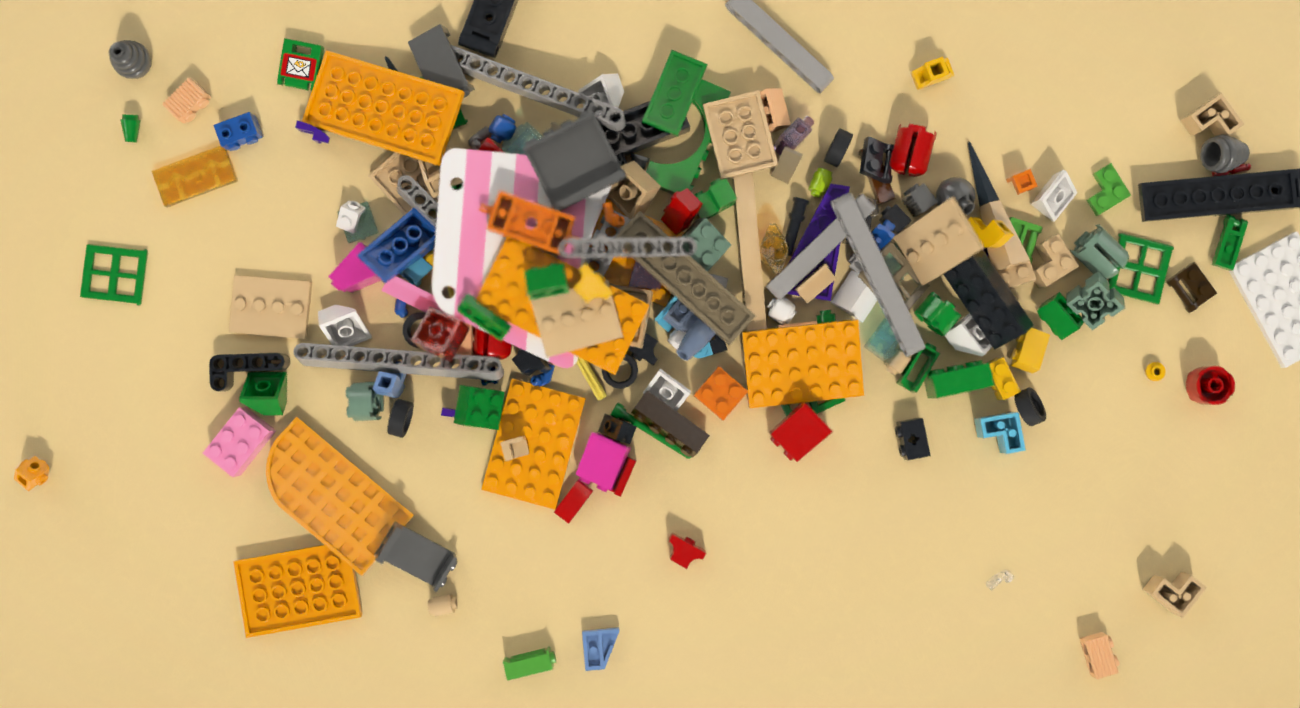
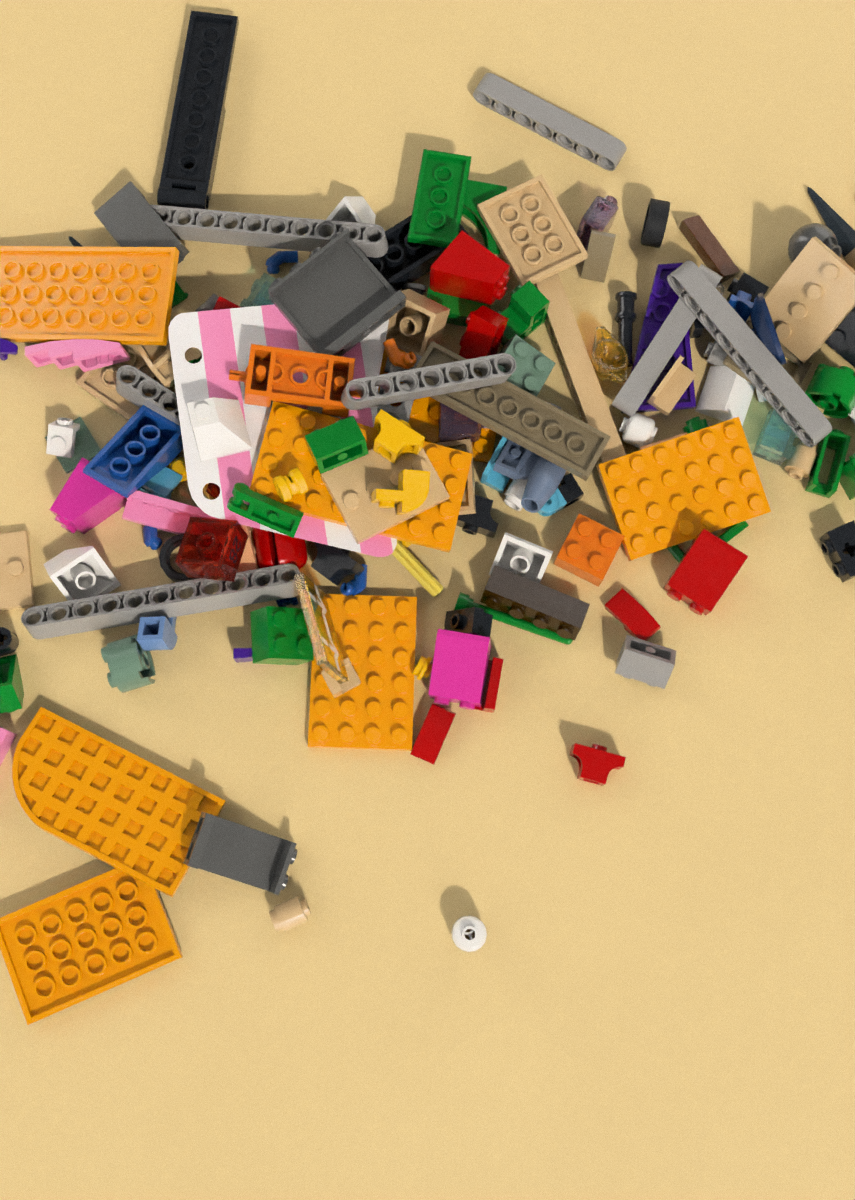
camera: 15 degrees left, 10 degrees down
(375, 155) = (85, 353): none -> bright pink slope
(400, 418) = (180, 675): black tyre -> none
(463, 246) = (218, 427): none -> white slope
(501, 306) = (290, 484): none -> yellow wheel
(502, 128) = (234, 287): blue head -> none
(506, 412) = (321, 628): none -> clear yellow tile
(529, 663) = (426, 965): bright green window -> none
(540, 109) = (278, 258): none -> blue arm
(570, 646) = (458, 933): none -> white head
(577, 452) = (423, 667): none -> yellow plate
(592, 333) = (411, 492): none -> yellow brick
(598, 647) = (513, 921): medium blue wing -> none
(634, 372) = (454, 571): black tyre -> none
(682, 160) = (469, 272): none -> red slope
(739, 486) = (645, 662): none -> light grey brick
(740, 449) = (632, 615): none -> red slope
(775, 109) = (566, 195): light nougat brick -> none
(820, 182) = (643, 270): lime brick -> none
(872, 160) = (699, 228): black plate -> none
(897, 259) = (764, 328): none -> dark blue dish
(918, 199) = (770, 261): dark grey brick -> none
(921, 153) = (750, 187): red cylinder -> none
(932, 73) = (742, 117): yellow brick -> none

